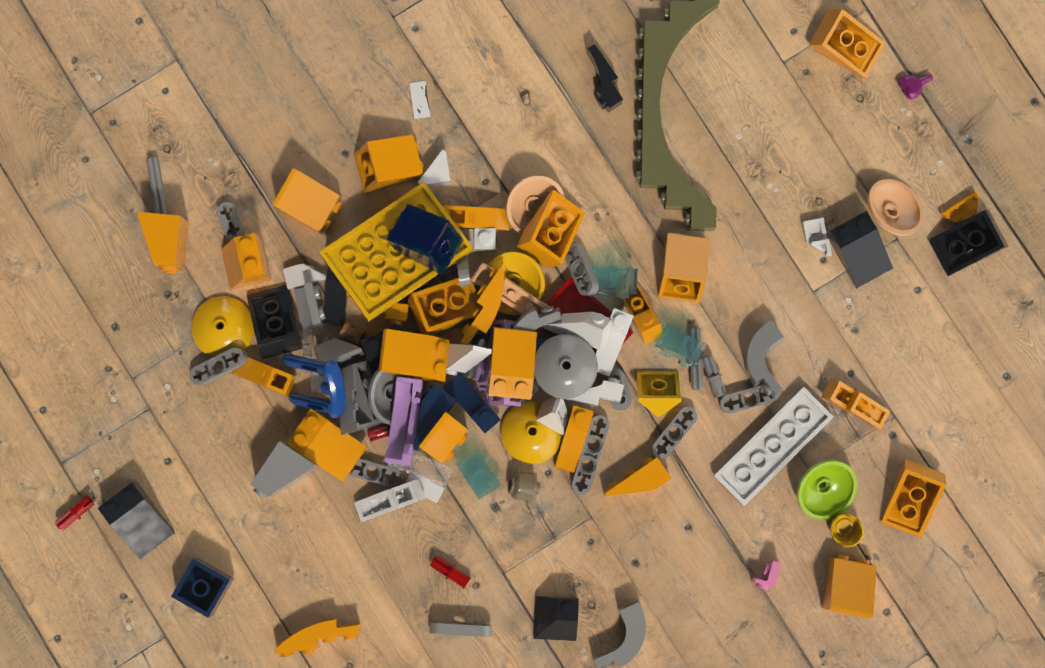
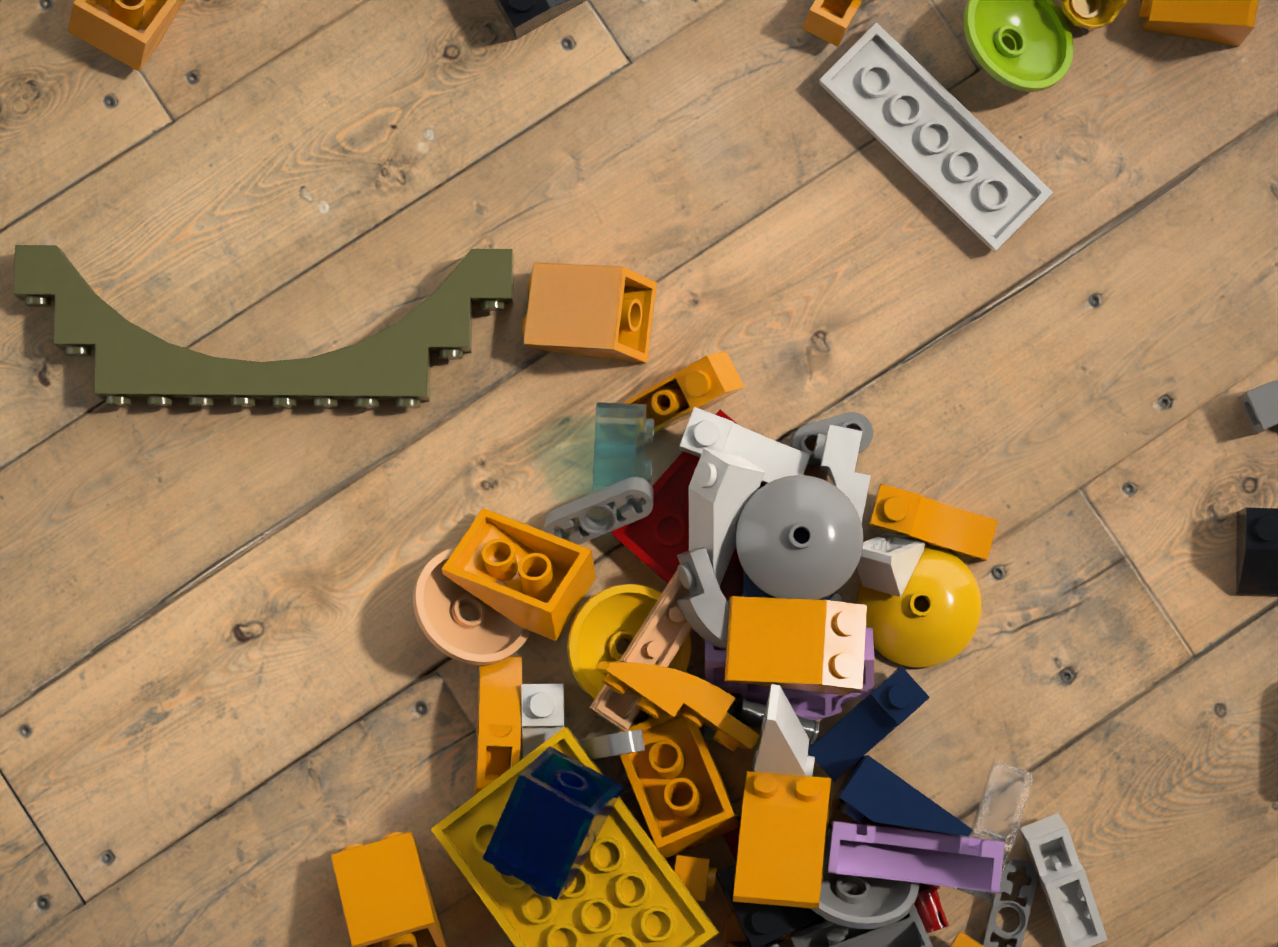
camera: 90 degrees left, 0 degrees up
(419, 99) = (255, 844): white sticker -> none
(430, 490) = (1039, 805): white sticker -> none
(438, 172) = (406, 802): white slope -> none
(444, 438) = (942, 776): light orange slope -> none
(450, 571) = (1197, 760): red axle -> none
(478, 474) = (1007, 708): clear light blue brick -> none
(523, 486) = (1028, 620): dark tan head -> none
(594, 456) = (962, 486): light grey beam -> none
(607, 95) = (244, 465): black slope -> none
(647, 478) = (1008, 386): light orange slope -> none
(658, 390) = (833, 358): yellow slope -> none
(680, 345) = (747, 315): clear light blue brick -> none
(688, 423) = (883, 317): light grey beam -> none
(696, 372) = (768, 288): light grey axle -> none
(714, 377) = (804, 252): light grey axle -> none
(735, 408) = (823, 158): light grey beam -> none
(761, 344) = (763, 170): light grey arch -> none
(771, 572) = (1181, 140): bright pink bracket -> none
(816, 235) = (519, 56): white slope -> none

